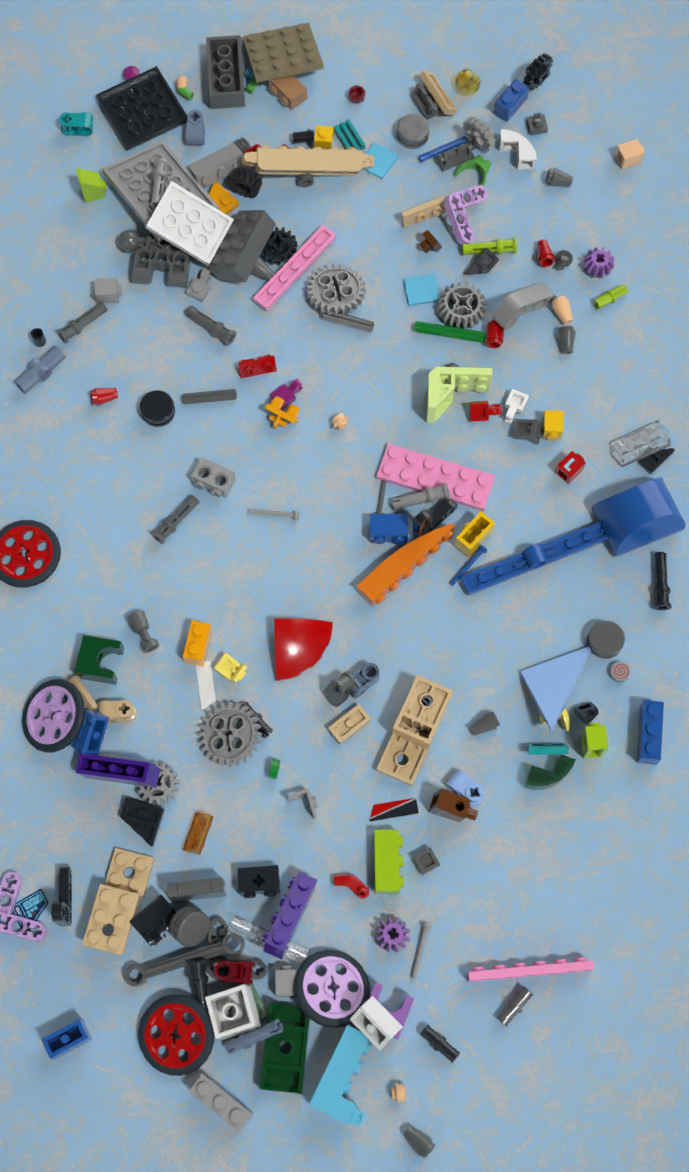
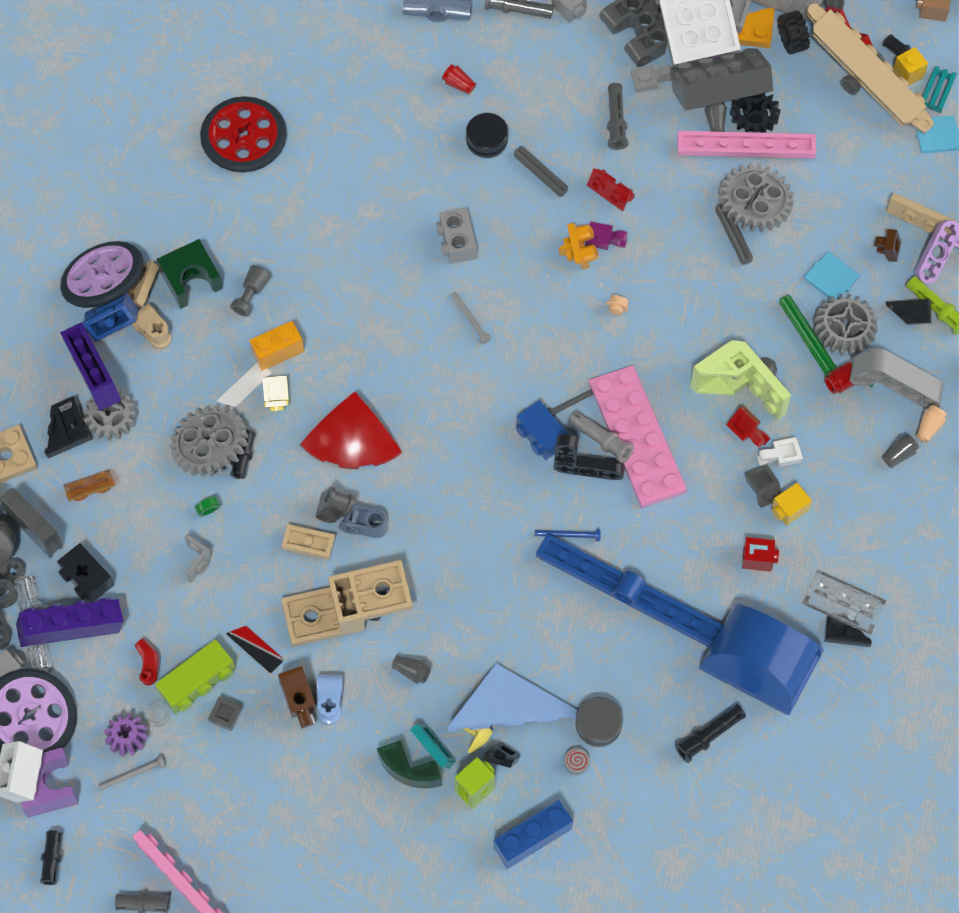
camera: 50 degrees right, 5 degrees down
(167, 524) = (416, 235): dark grey pin -> none
(401, 565) = (515, 469): orange slope -> none
(474, 533) = (603, 513): yellow brick -> none

